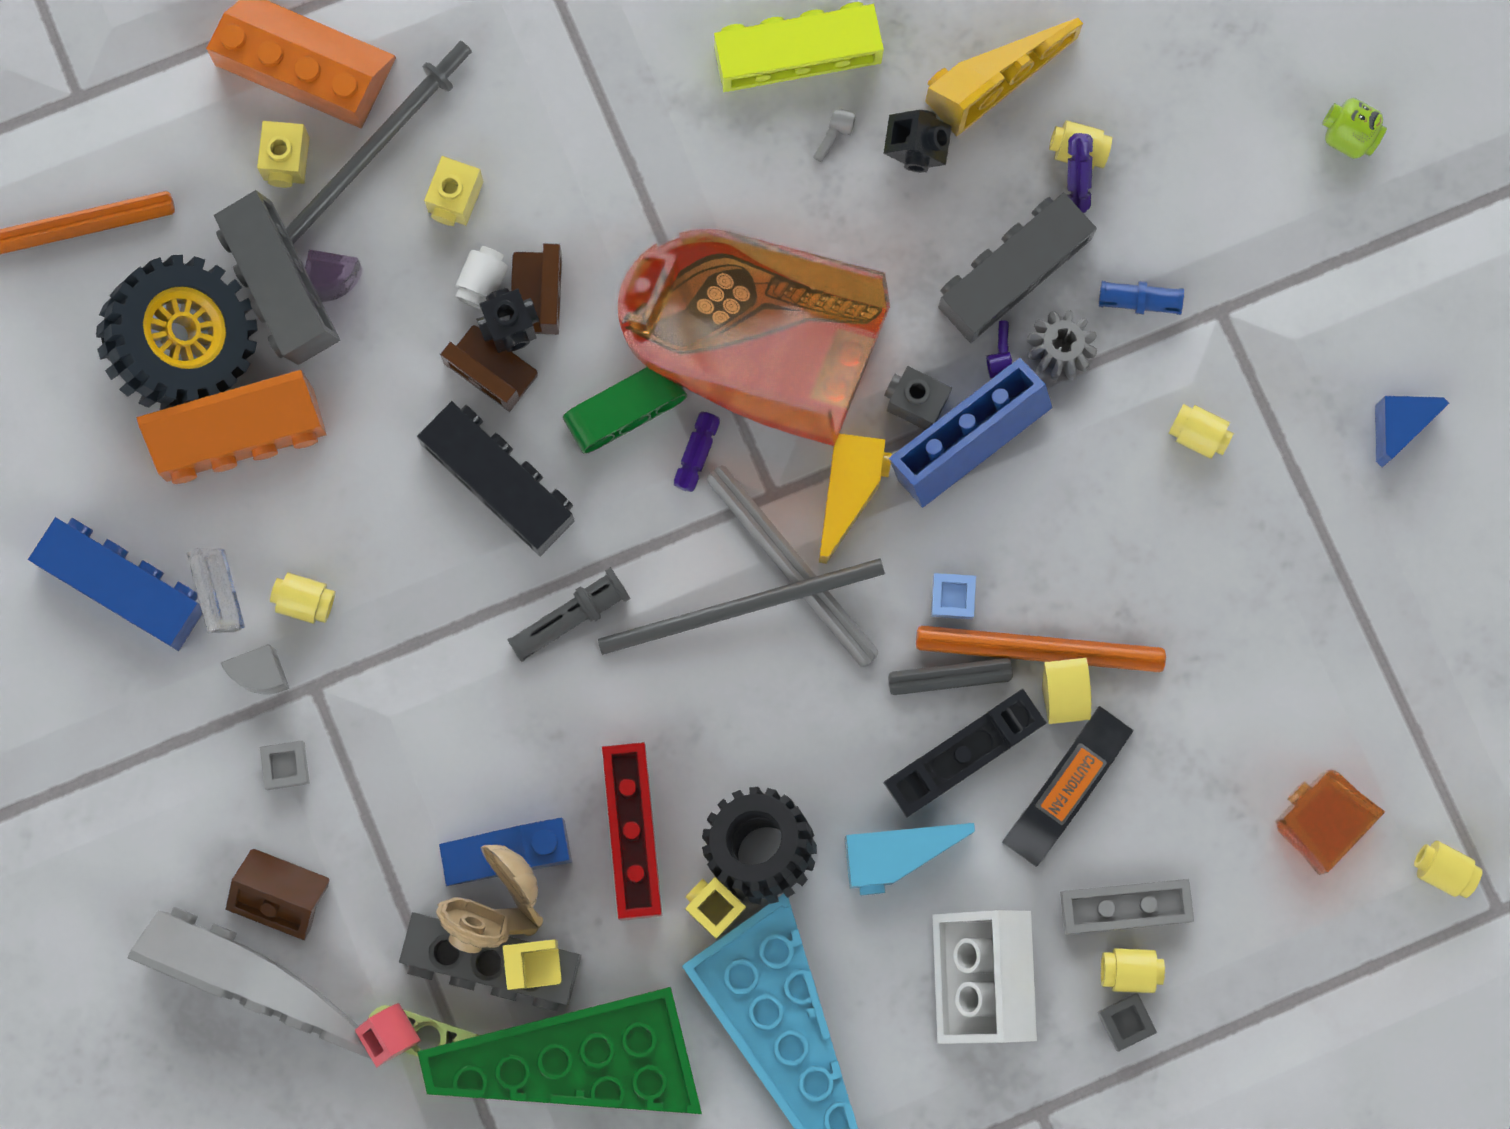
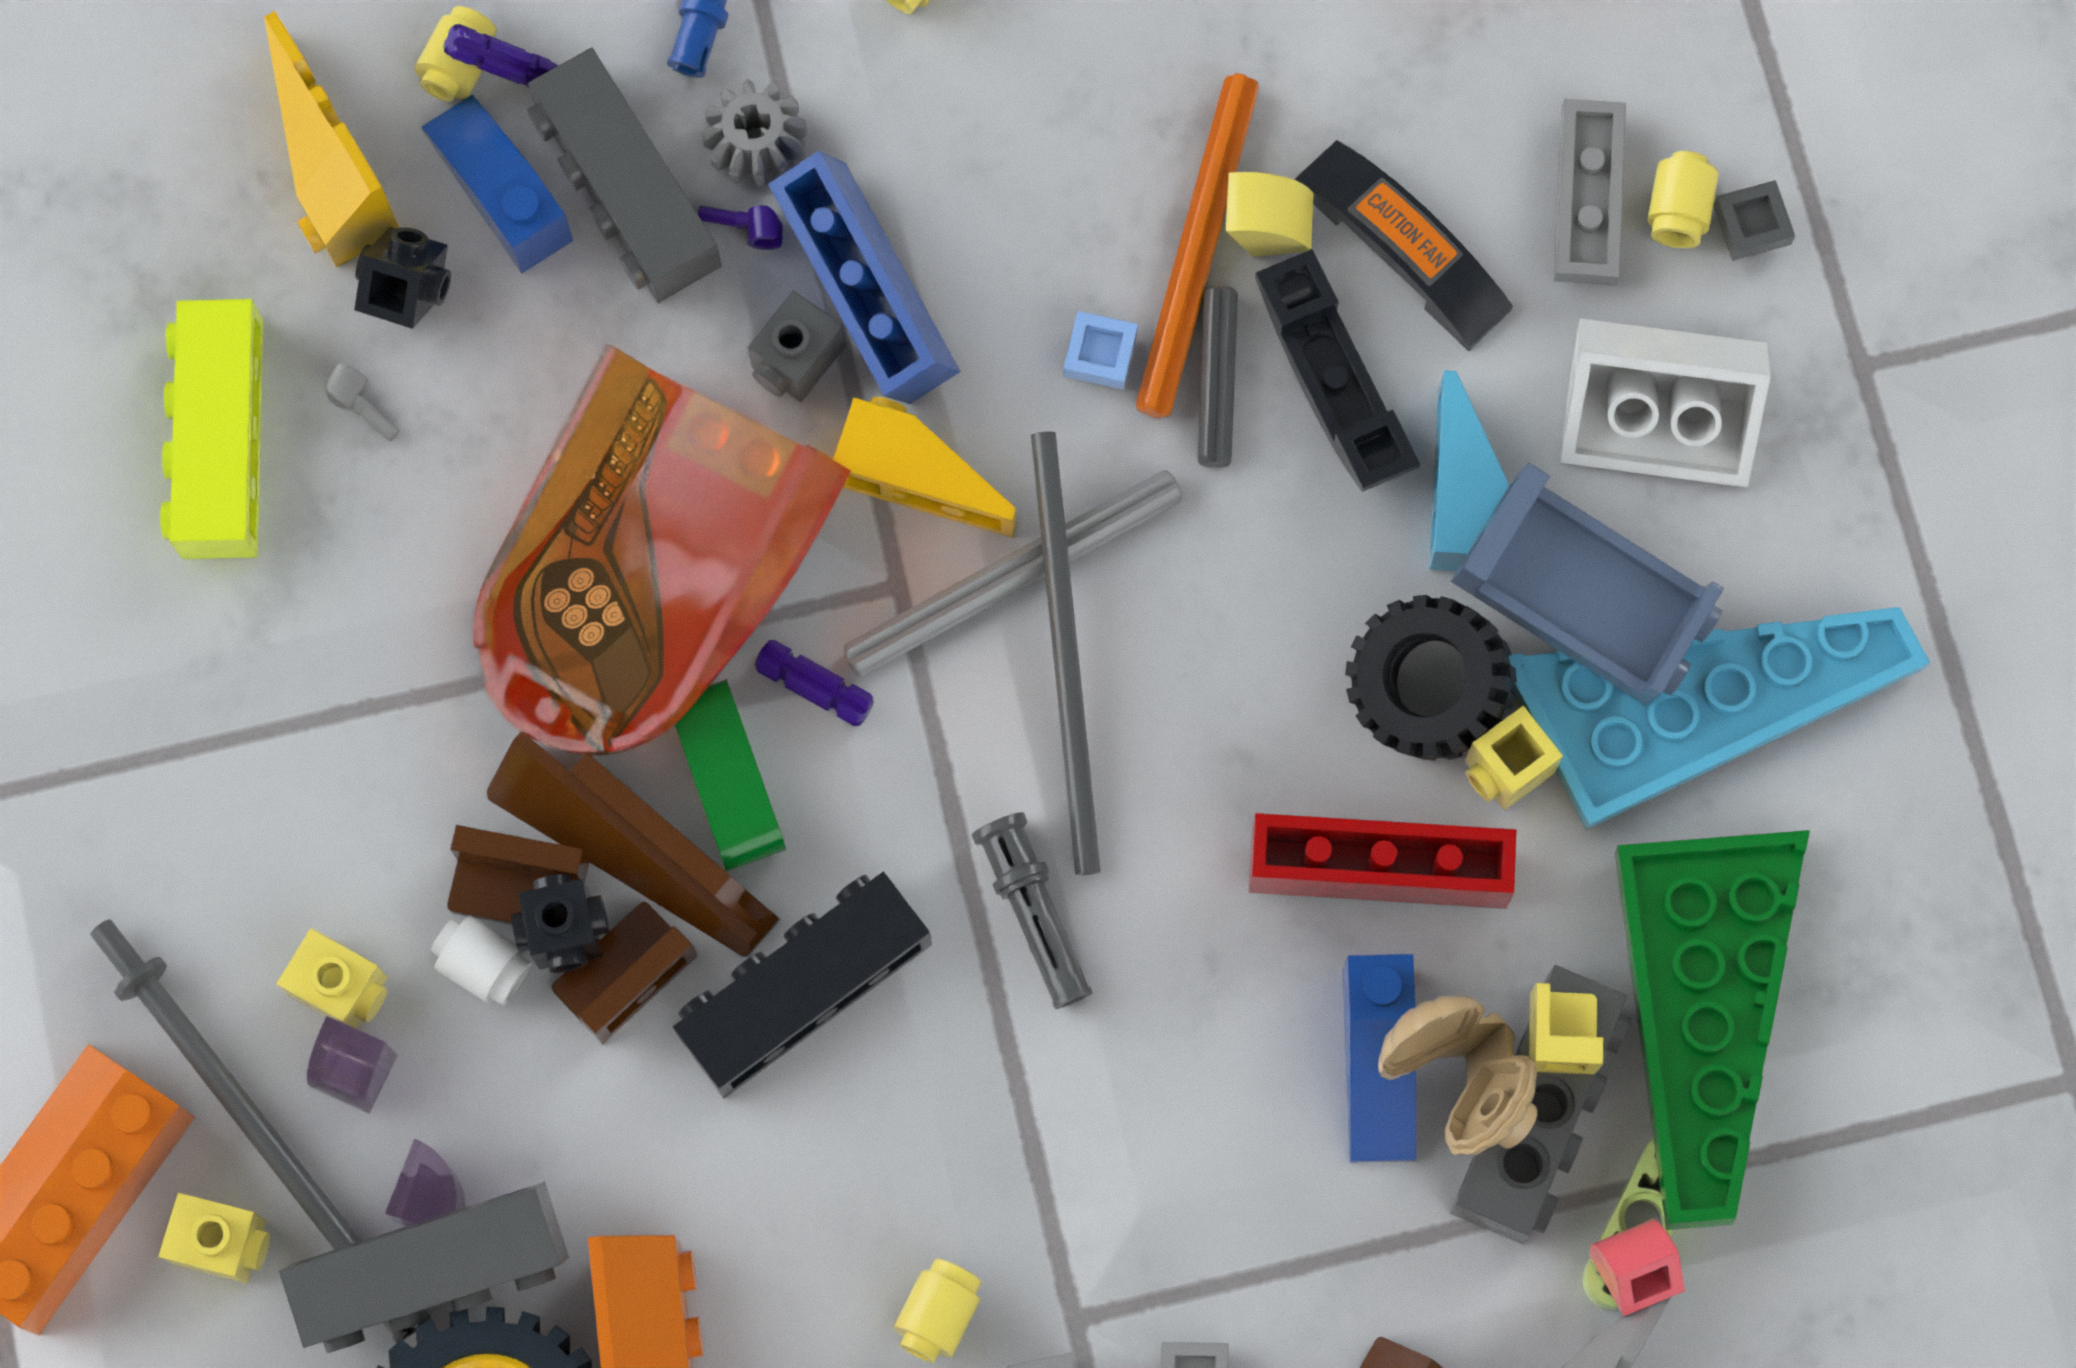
camera: 75 degrees left, 5 degrees down
(404, 212) = (349, 1064): none -> clear purple brick
(575, 356) = (628, 841): none -> reddish brown wedge
(836, 940) = (1587, 589): none -> sand blue panel
(997, 189) = (499, 183): none -> blue slope

